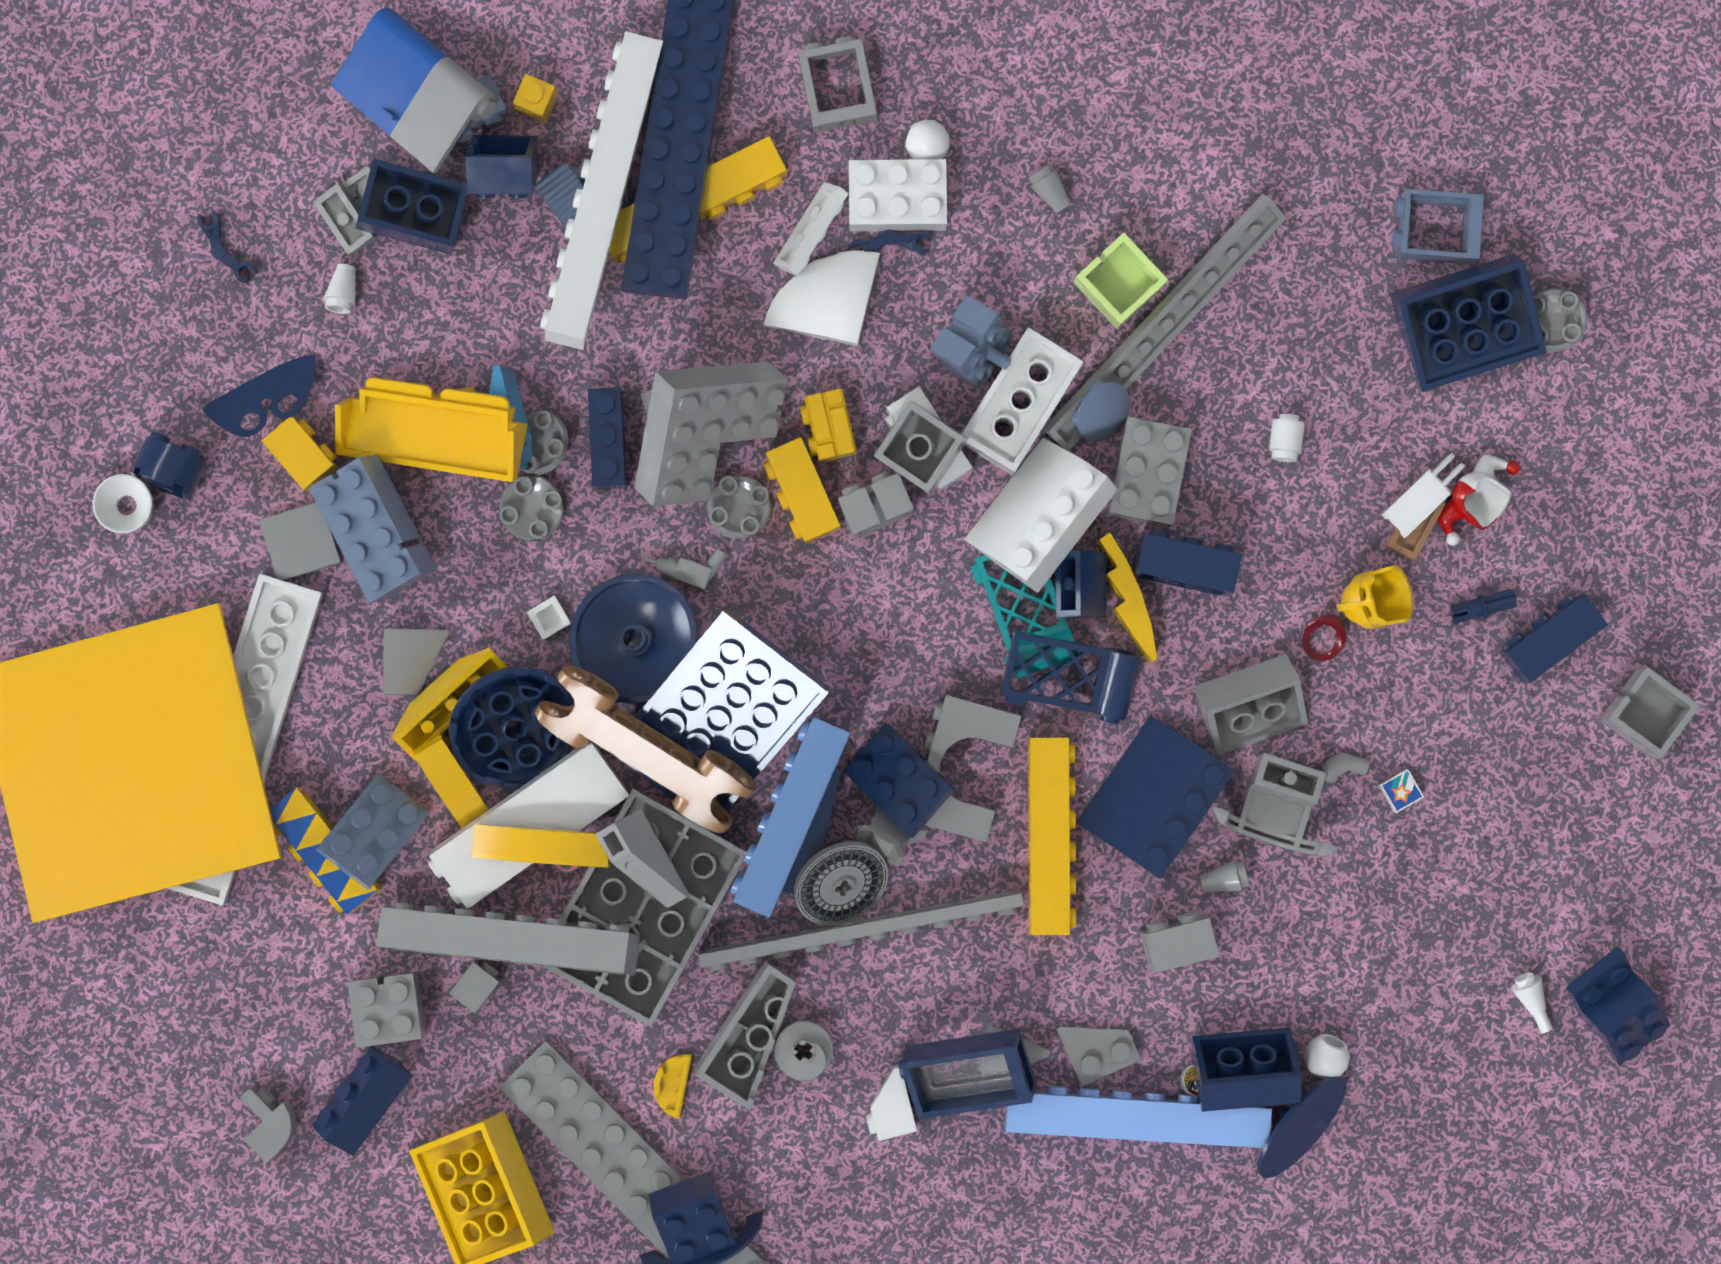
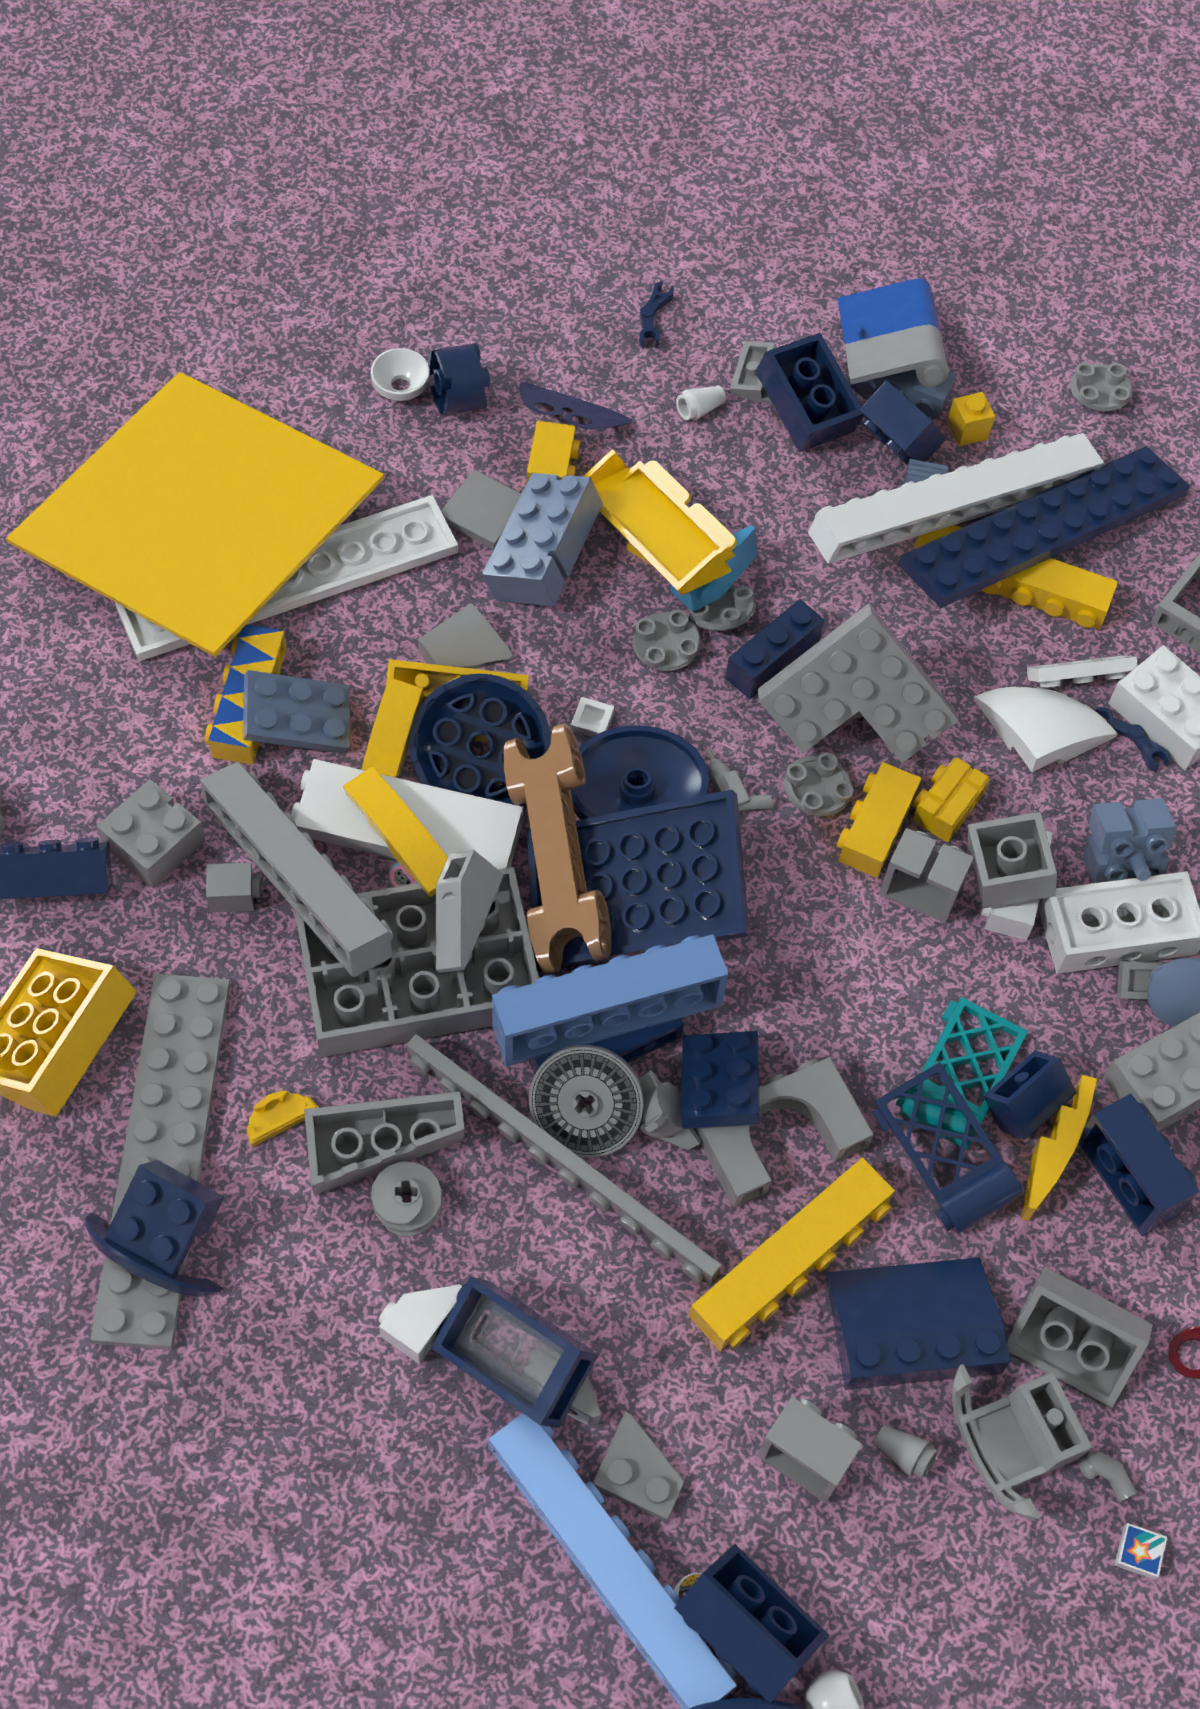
camera: 50 degrees right, 25 degrees down
(1041, 513) = (1056, 1013): white slope -> none

